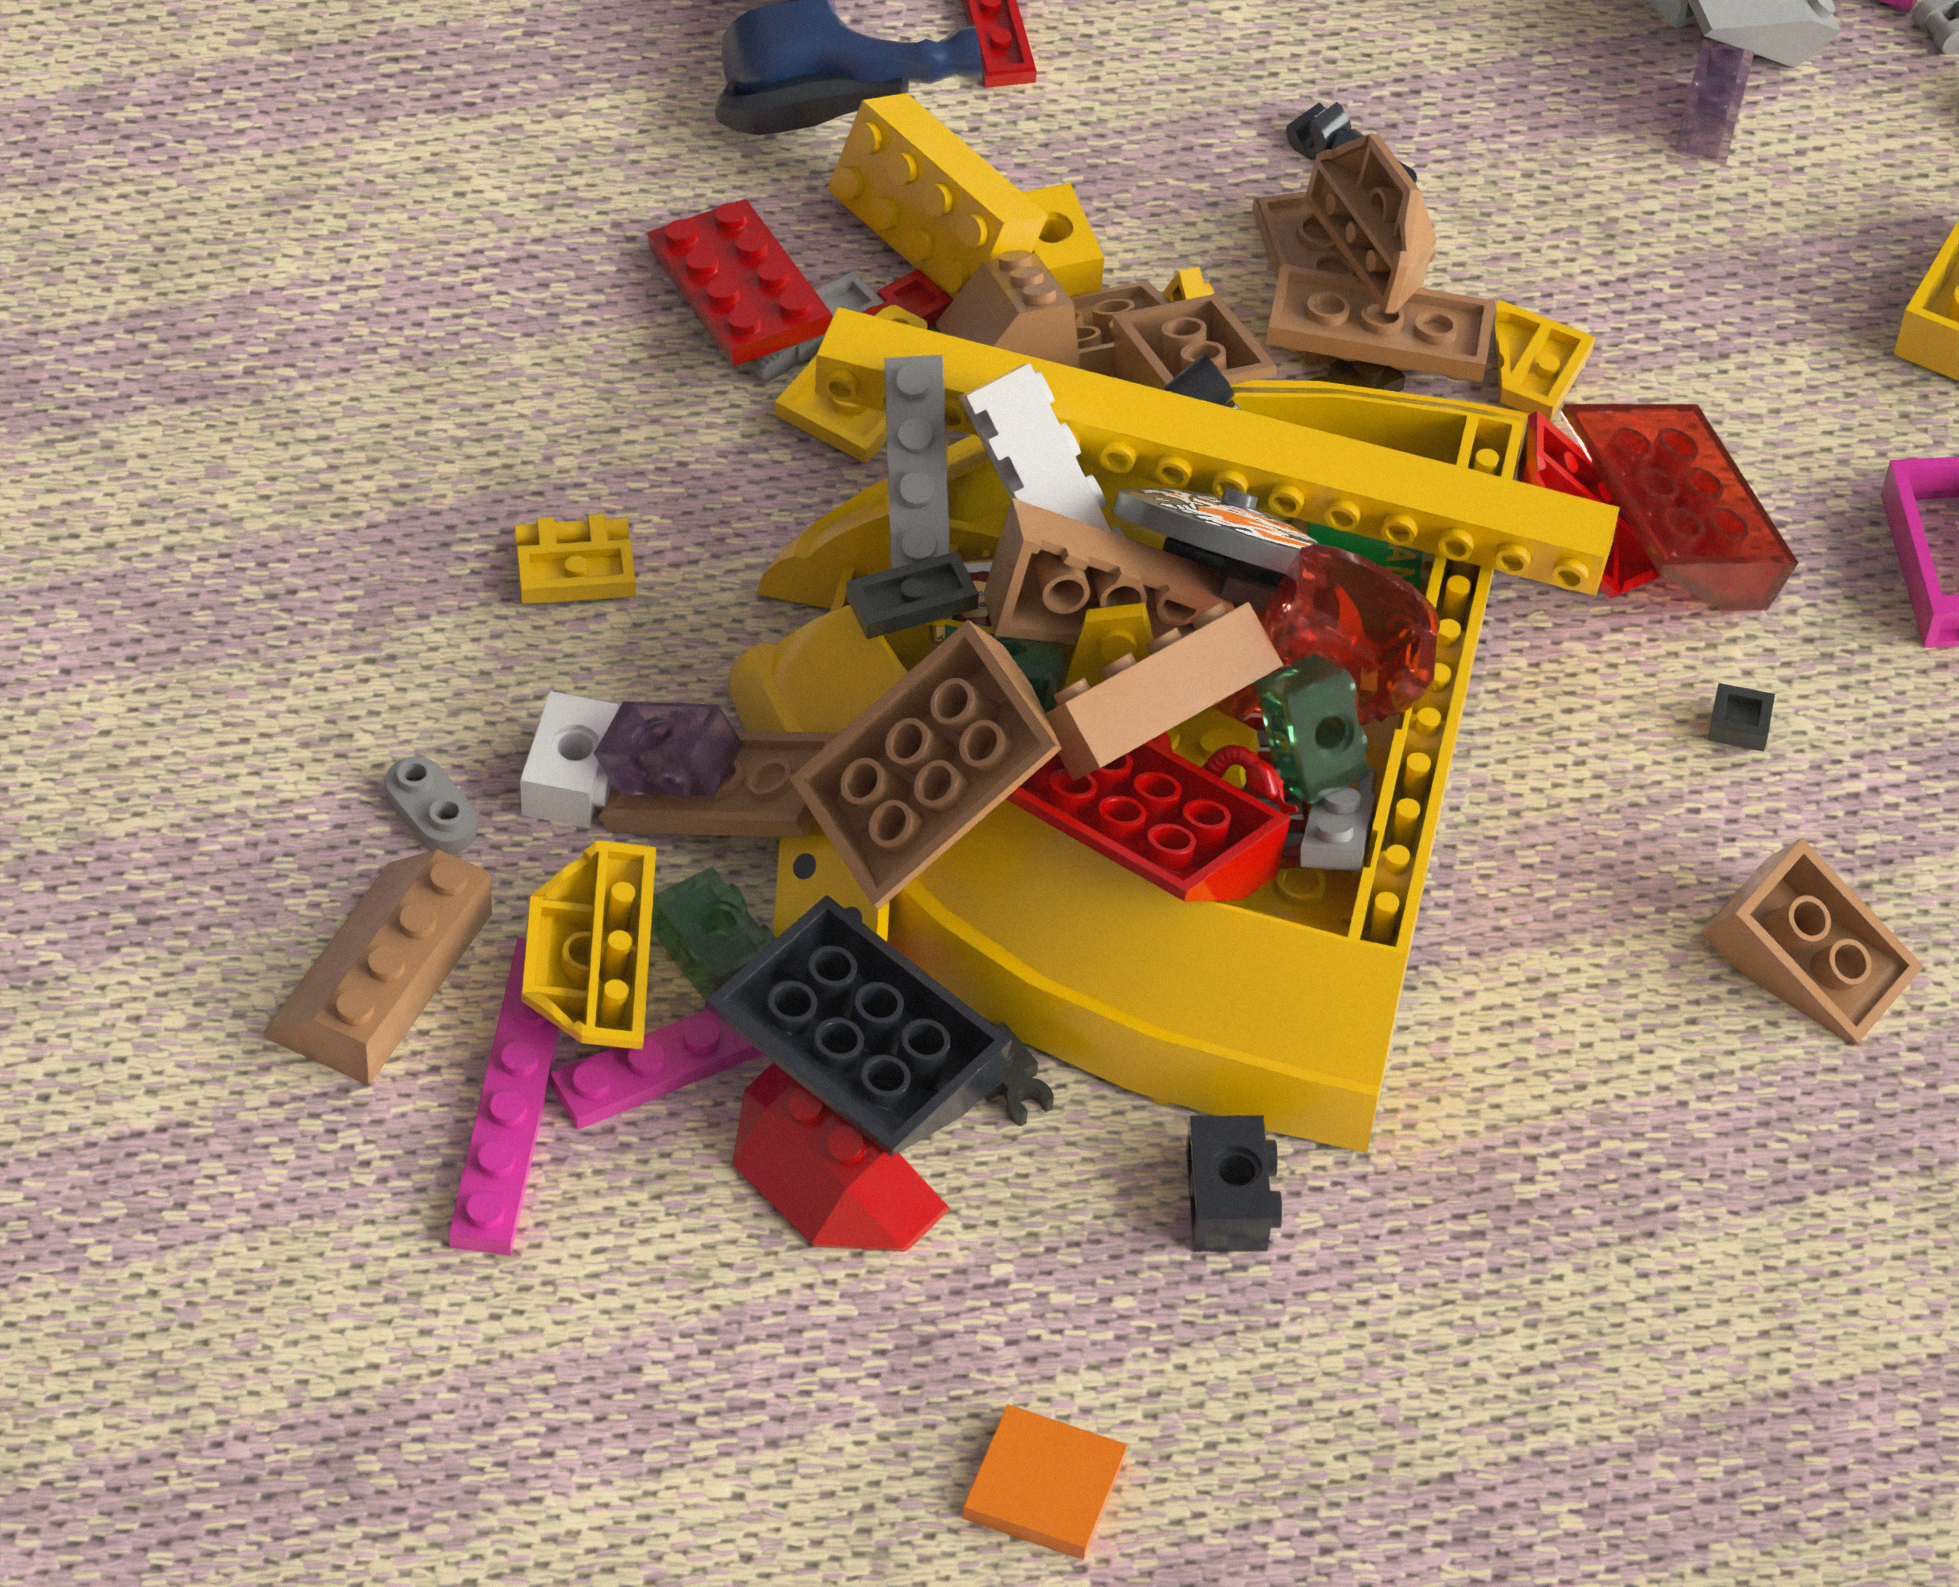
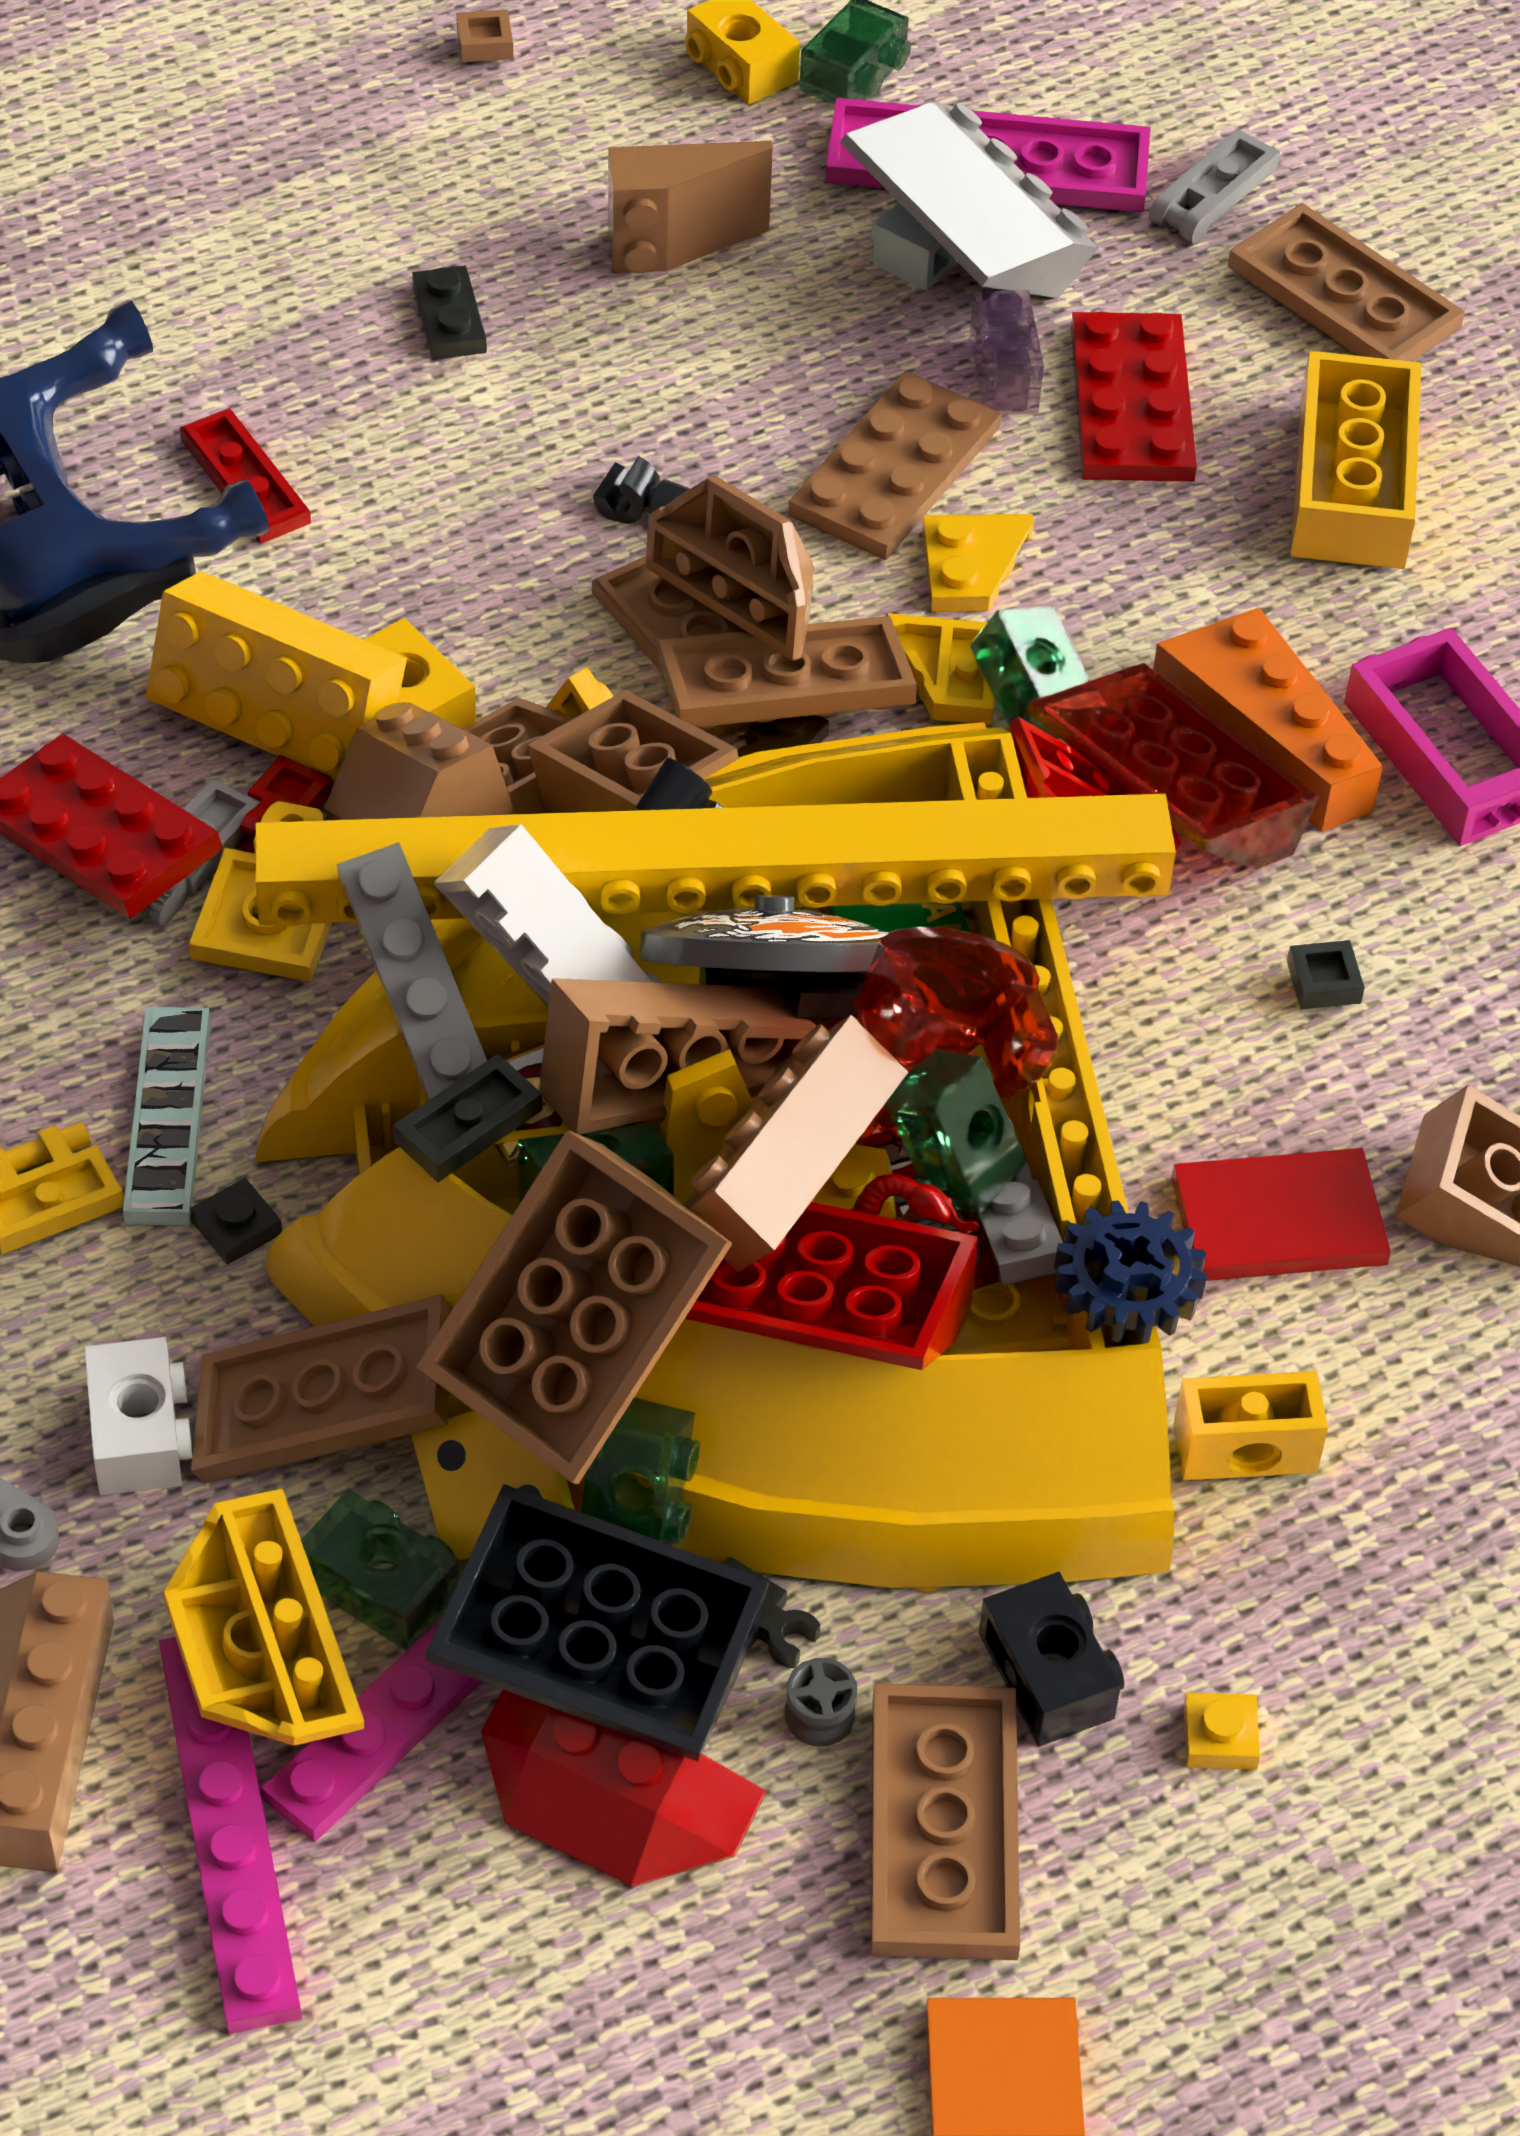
camera: 20 degrees left, 0 degrees up
(668, 749) = (248, 1371): clear purple brick -> none
(700, 535) = (167, 1117): none -> tile
(719, 634) = (236, 1221): none -> pearl dark grey plate
(949, 897) = (659, 1446): none -> clear green brick
(1020, 1141) = (829, 1687): none -> dark grey wheel
(1084, 1278) = (944, 1822): none -> medium nougat plate
(1349, 1288) = (1221, 1731): none -> yellow plate
(1402, 883) = (1130, 1271): none -> dark blue gear
(1484, 1056) = (1250, 1425): none -> yellow brick
(1571, 174) = (894, 465): none -> medium nougat plate
(1597, 368) = (1026, 658): none -> clear green brick
(1600, 273) = (971, 557): none -> yellow wing
(1604, 901) = (1282, 1213): none -> red tile
(1799, 472) = (1270, 699): none -> orange wedge
(1817, 173) = (1133, 397): none -> red plate

